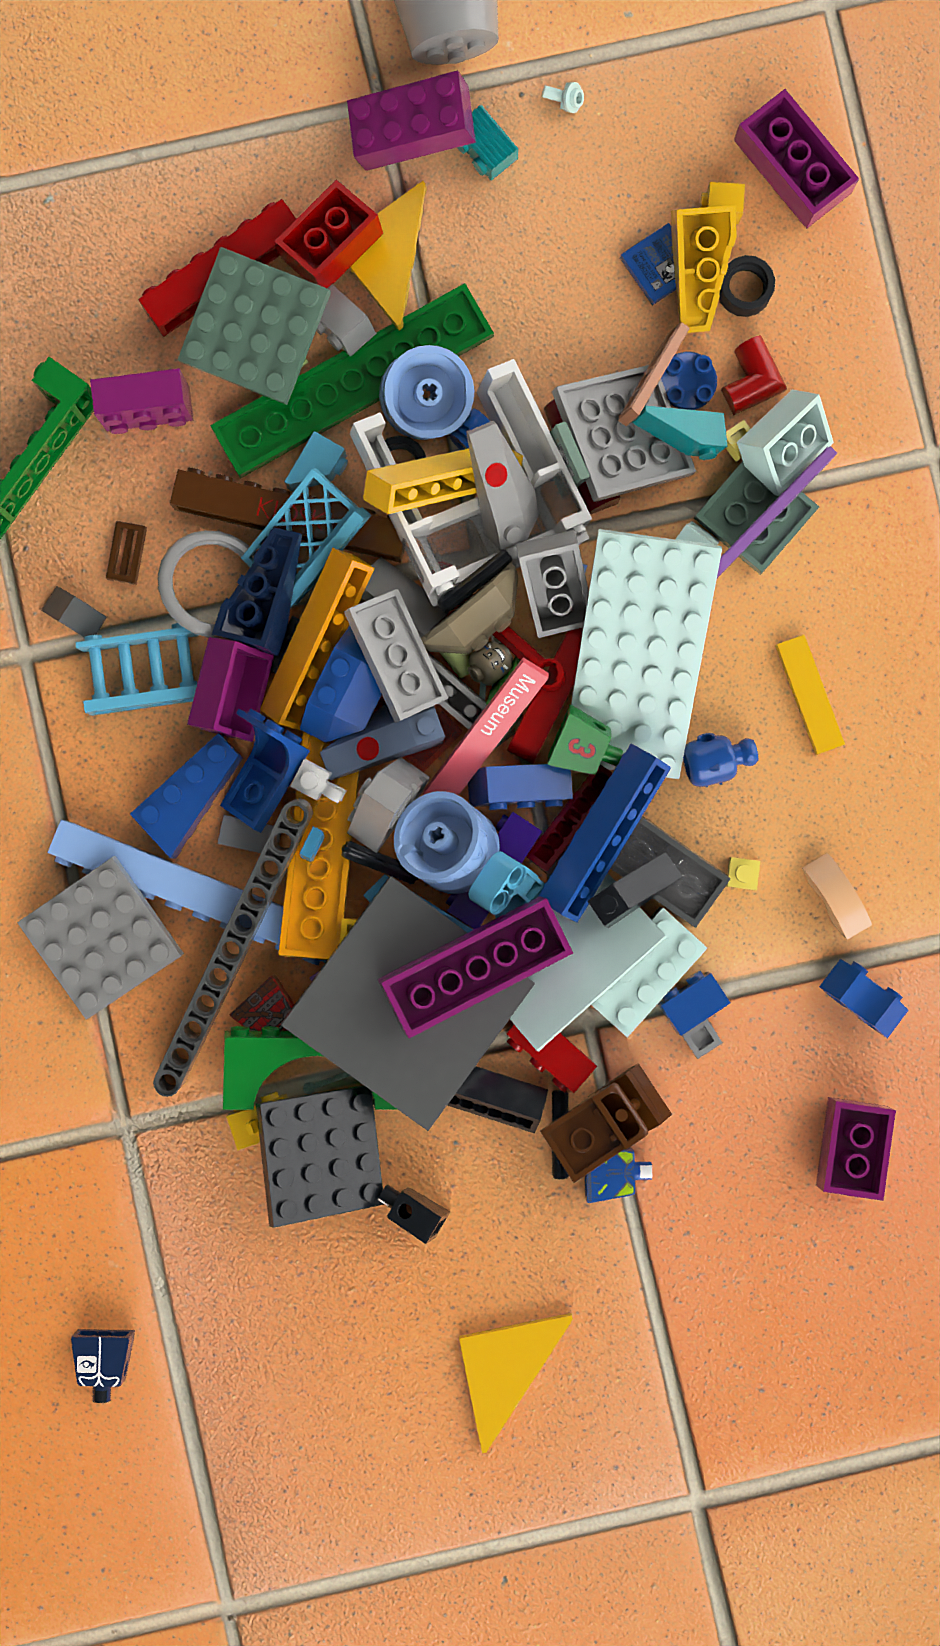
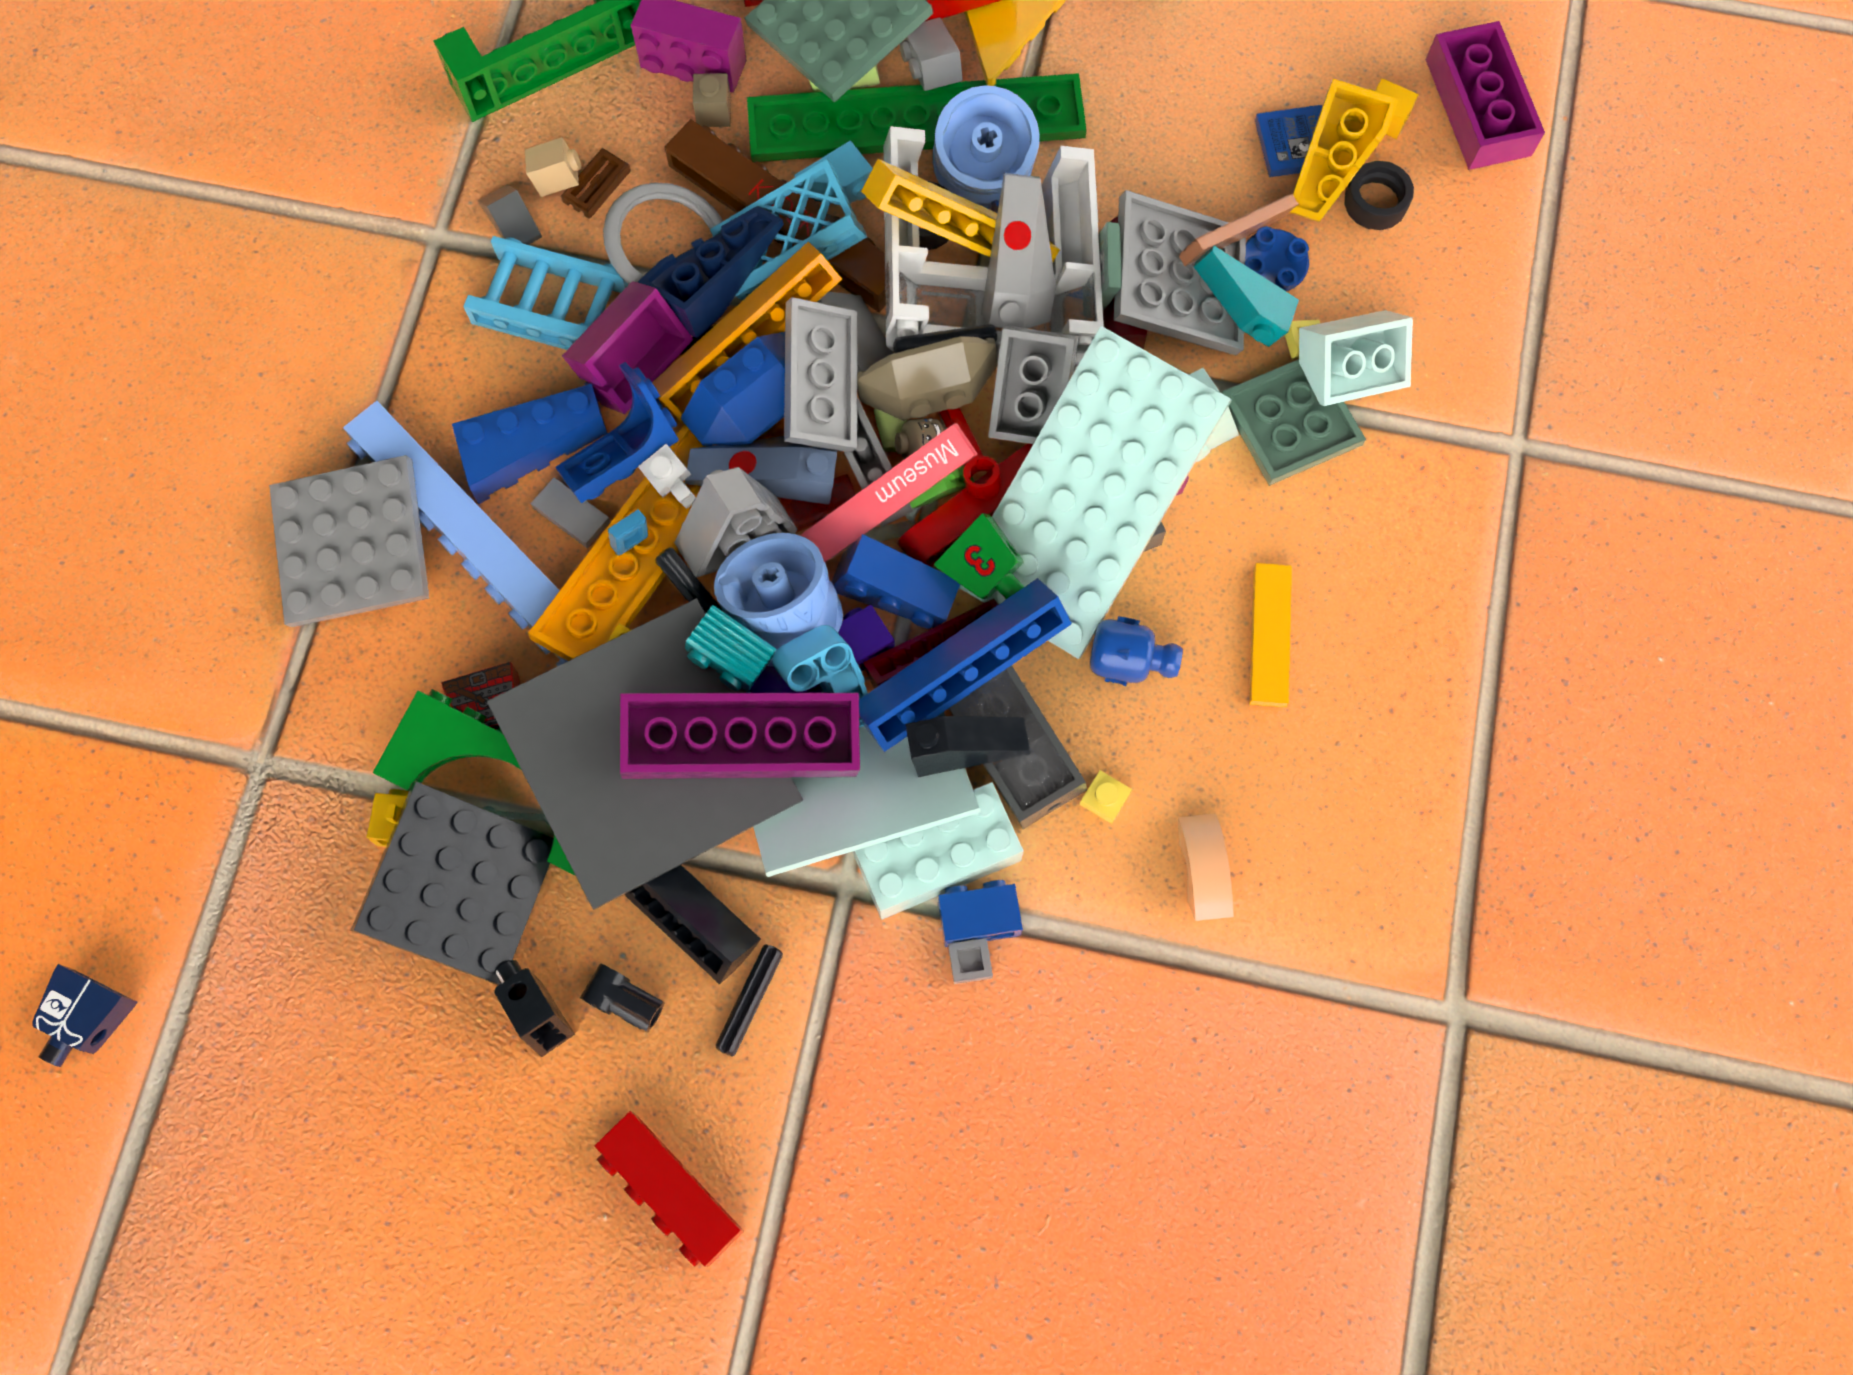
camera: 25 degrees right, 15 degrees down
(88, 559) = (552, 166): none -> tan brick
(183, 440) = (712, 100): none -> dark tan brick
(222, 958) = (465, 609): dark grey beam -> none
(436, 905) = (728, 649): none -> teal brick
(463, 1175) = (614, 994): none -> black piece
(503, 1366) = (538, 1254): yellow tile -> none
(558, 1056) = (790, 903): red brick -> none
(569, 1287) = (668, 1190): none -> red brick
(606, 1123) = (808, 1000): reddish brown piece -> none
(616, 1177) = (788, 1070): blue torso -> none
(761, 377) = (1356, 290): red brick -> none
(776, 508) = (1303, 419): medium lavender tile -> none
(855, 1148) = (1098, 1178): magenta brick -> none
(863, 997) = (1193, 1010): blue brick -> none

